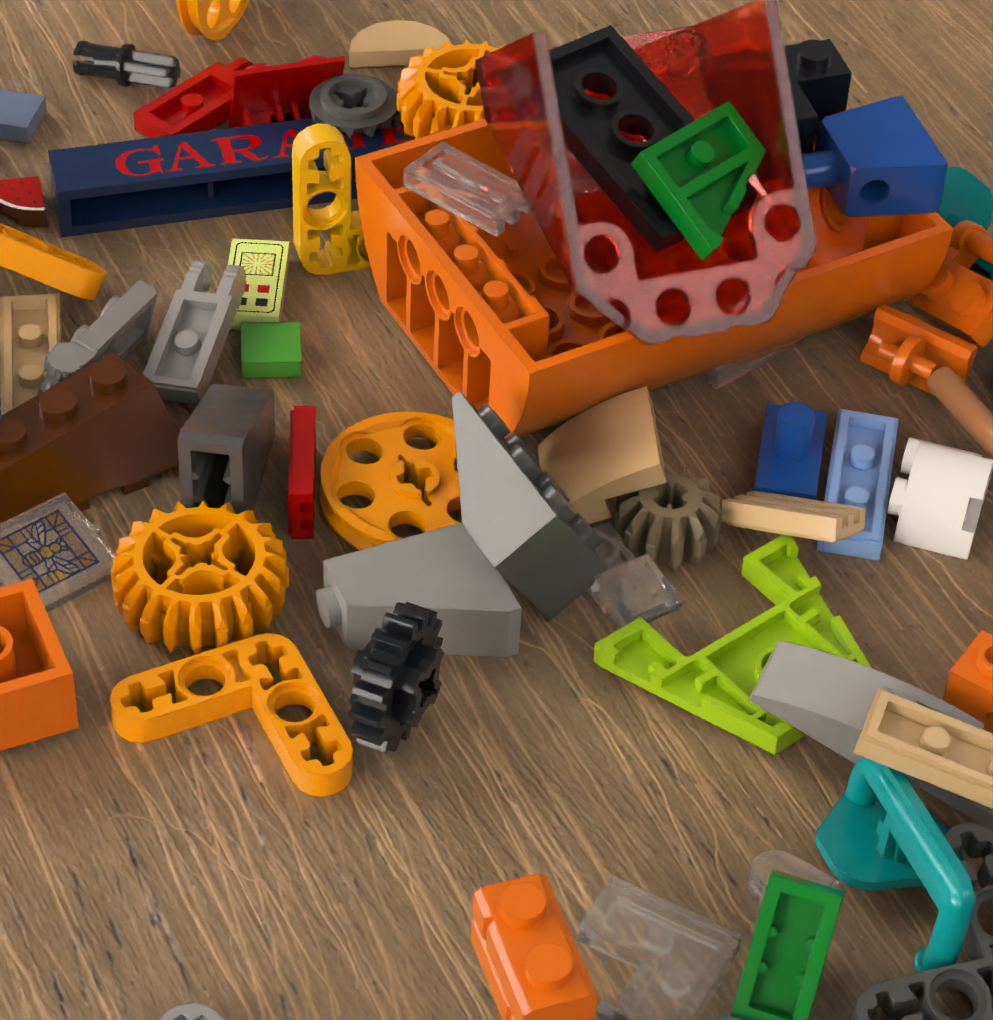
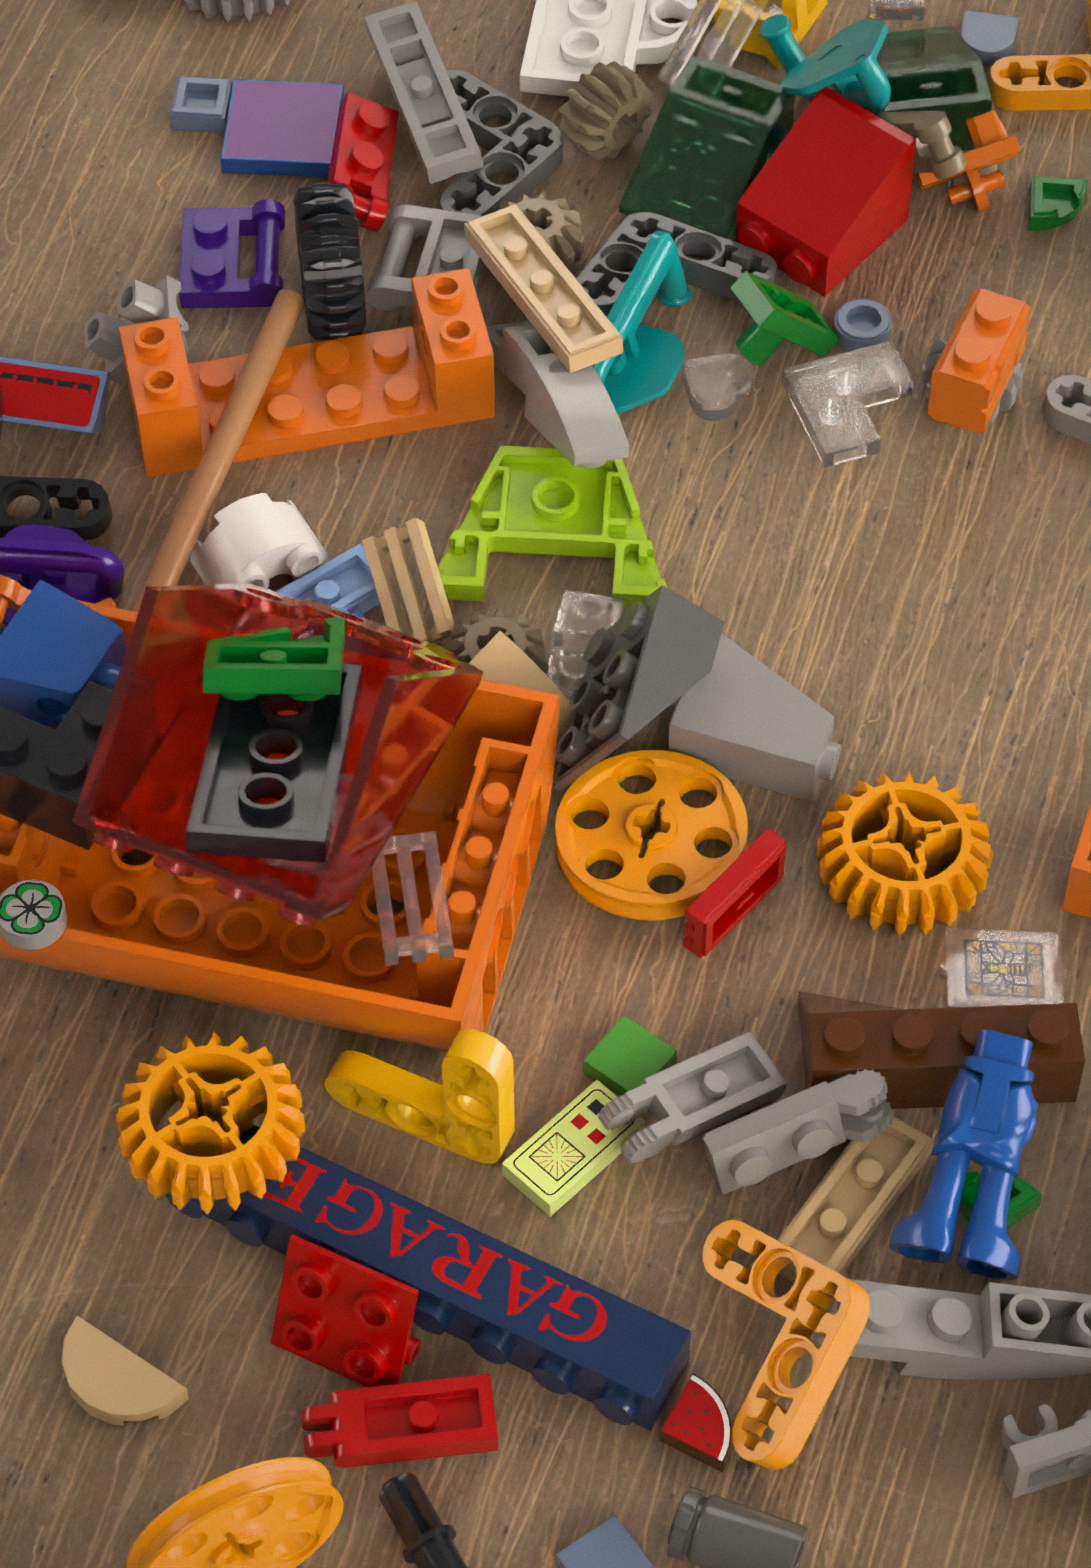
camera: 135 degrees left, 10 degrees up
(226, 447) = (789, 931): dark grey slope -> none
(246, 686) = (947, 755): light orange beam -> none
(340, 101) = (333, 1192): dark grey gear -> none
(396, 677) = (856, 632): black gear -> none

